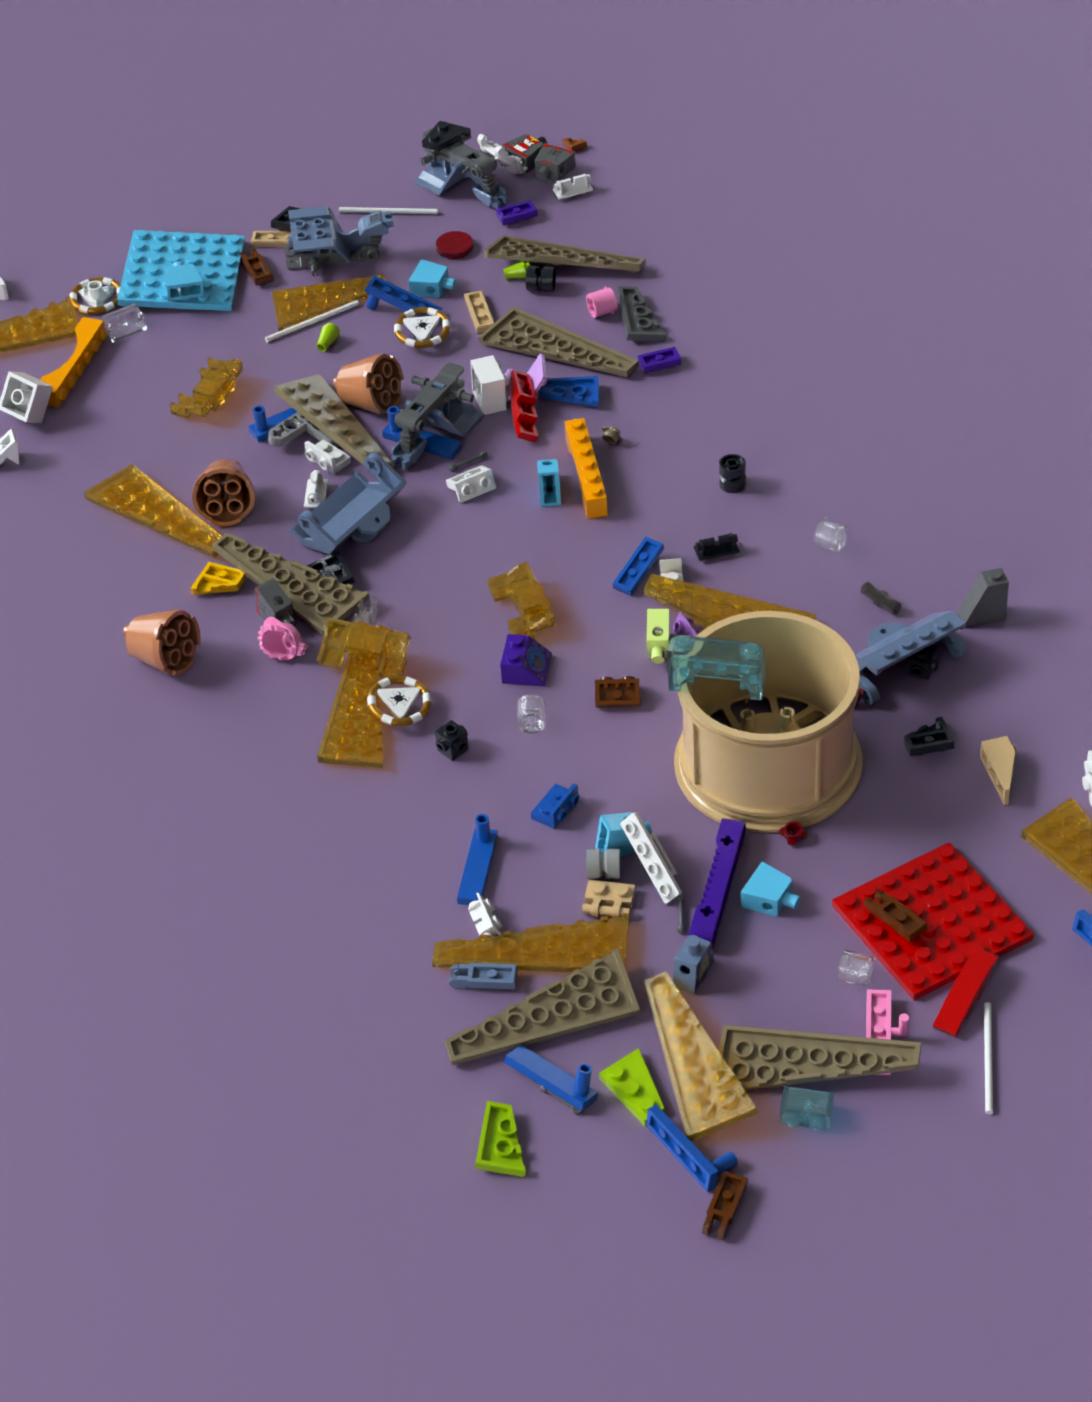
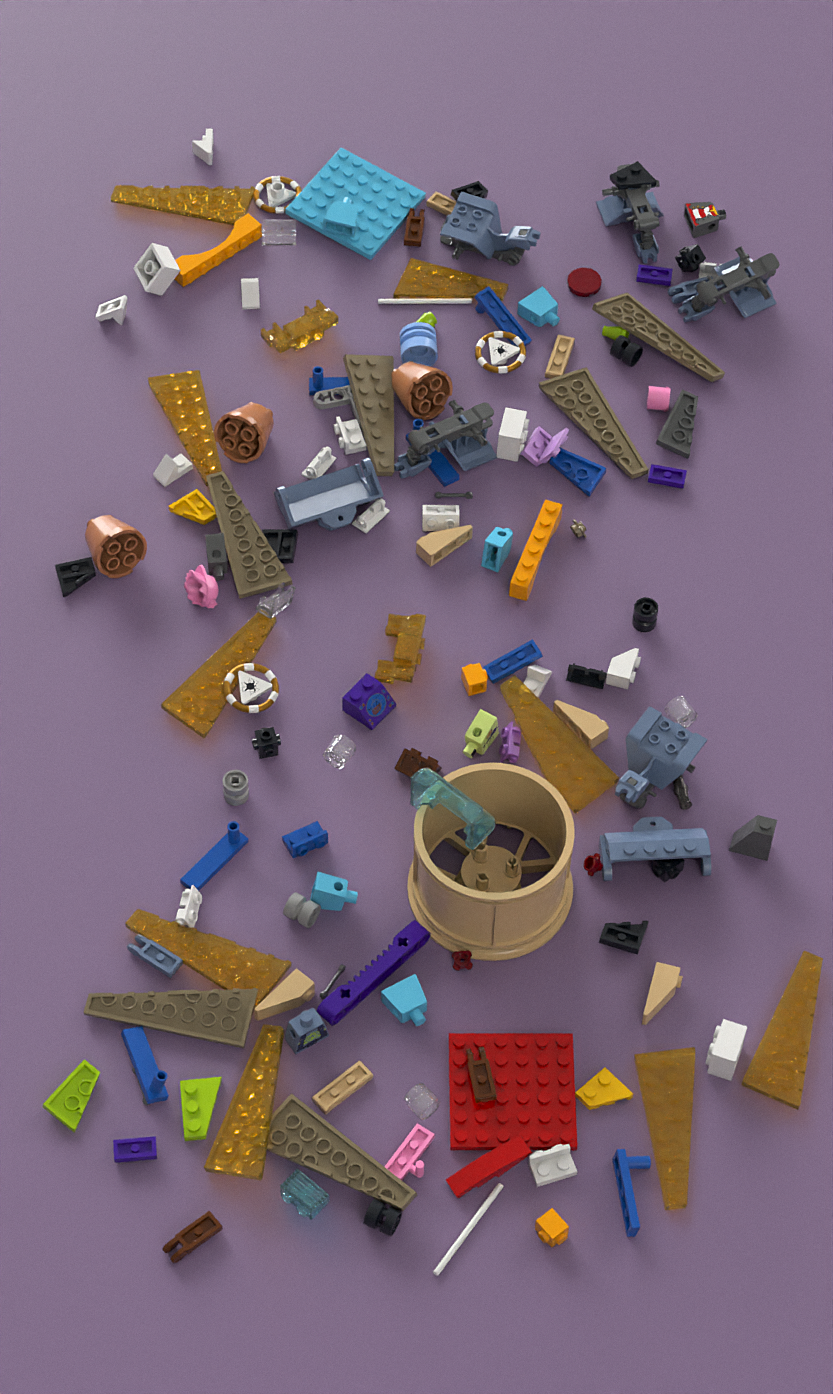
camera: 25 degrees right, 10 degrees up
(133, 383) = (250, 293): none -> white slope
(136, 688) = (74, 574): none -> black wing
(167, 558) = (172, 469): none -> white slope
(337, 348) = (418, 344): none -> light blue wheel
(365, 641) = (243, 612): clear yellow bracket -> none
(394, 210) = (556, 222): white axle -> none
(402, 510) = (371, 516): none -> white hinge
(452, 791) = (235, 787): none -> light grey wheel
(489, 502) = (441, 543): none -> tan slope
(501, 156) = (671, 216): white animal -> none
(522, 403) = (526, 467): red slope -> none
(541, 185) = (690, 258): none -> black brick
(554, 162) = (718, 239): dark grey torso -> none
(561, 209) = (687, 288): none -> sand blue hinge
(574, 145) = (750, 229): dark orange tile -> none
(602, 1157) = (135, 1149): none -> dark purple plate
(604, 179) = (742, 279): none -> piece
(608, 898) = (292, 937): tan plate -> none
(612, 597) = (474, 679): none -> light orange brick
(649, 944) = (286, 996): none -> tan slope
(652, 857) = (339, 926): white bracket -> none
(686, 1152) = (197, 1203): blue piece -> none
(747, 526) = (622, 669): none -> white slope
(749, 584) = (583, 724): none -> tan slope
(765, 998) = (342, 1087): none -> tan tile
(843, 575) = (656, 756): none -> sand blue piece
(892, 1087) = (376, 1213): none -> black wheel
(1016, 876) = (602, 1090): none -> yellow wing
(1022, 961) = (552, 1165): none -> white bracket
(1069, 1013) = (551, 1228): none -> light orange brick

